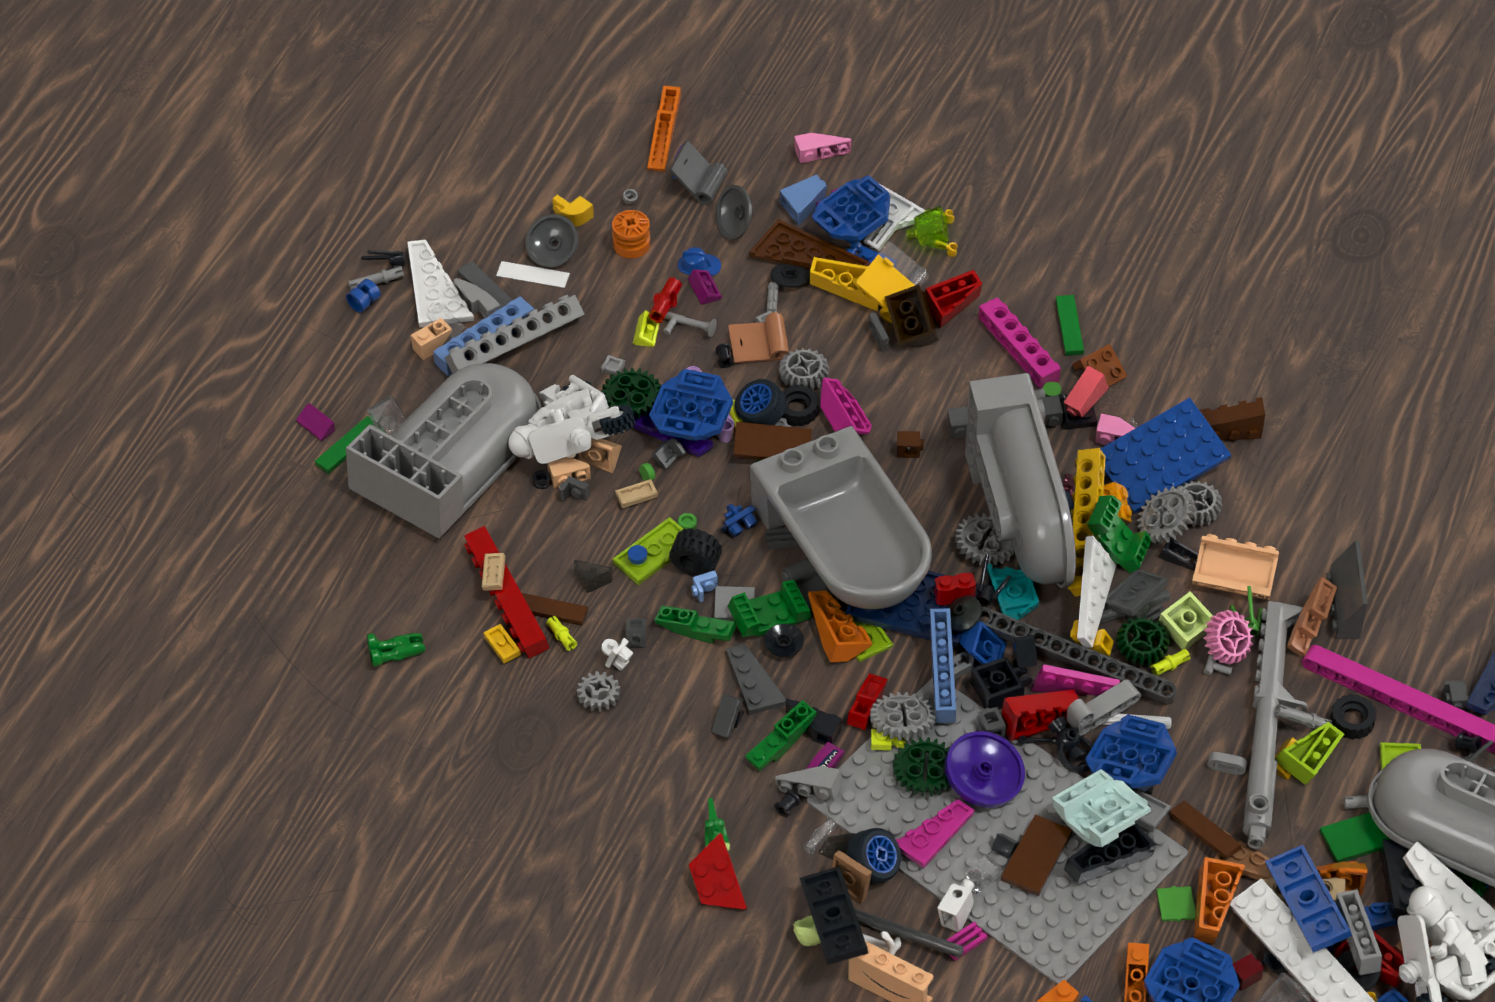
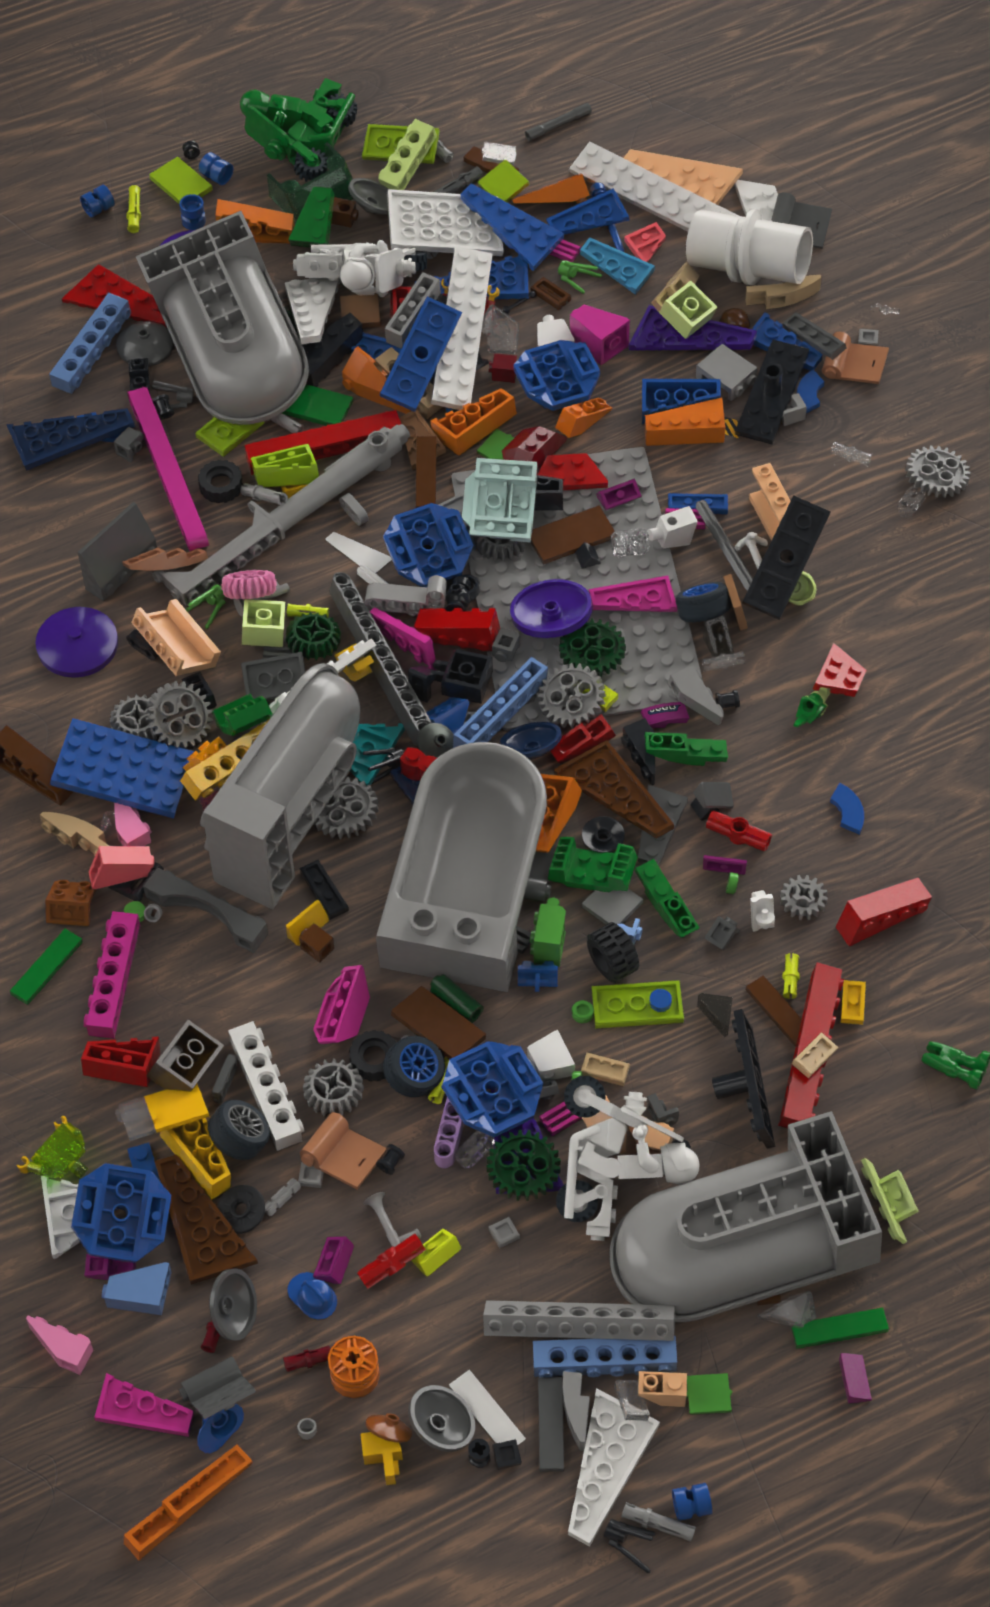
camera: 140 degrees left, 5 degrees up
(374, 533) = (893, 1196): none -> yellowish green bracket
(403, 362) = (708, 1393): none -> bright green piece
(498, 255) = (506, 1454): none -> black plate
(514, 241) = (482, 1446): none -> black bush
(526, 539) = (747, 1080): none -> black plate
(530, 714) = (881, 910): none -> red wedge
(589, 215) = (388, 1428): none -> dark orange dish
(621, 785) = (850, 808): none -> blue tile
(642, 442) = (554, 1111): none -> dark pink tile
(659, 668) = (732, 883): none -> bright green tile
(673, 221) = (306, 1358): none -> dark red pin
(679, 474) = (551, 1057): none -> white torso
(679, 681) = (724, 864): none -> magenta slope
(679, 710) = (749, 834): none -> red piece
(740, 148) = (131, 1407): none -> dark pink wing
(752, 541) = (548, 933): none -> bright green hinge
(807, 677) = (613, 784): none -> reddish brown wing
(843, 295) = (238, 1129): none -> black wheel
(849, 344) = (281, 1133): none -> white brick
(907, 661) = (533, 739): none -> dark blue dish
(928, 456) = (313, 914): none -> yellow slope
(943, 485) = (324, 889): none -> black tile
(968, 963) = (717, 502): none -> blue tile
(1035, 917) = (619, 494): none -> magenta slope
(1092, 908) = (576, 471): none -> red wing
(1142, 409) = (73, 831): none -> tan slope
(1144, 906) = (533, 445): none -> dark red wedge
(1195, 739) = (358, 552): none -> white sticker
(1308, 532) = (77, 642): none -> dark purple dish
(1316, 798) = (326, 440): none -> red brick

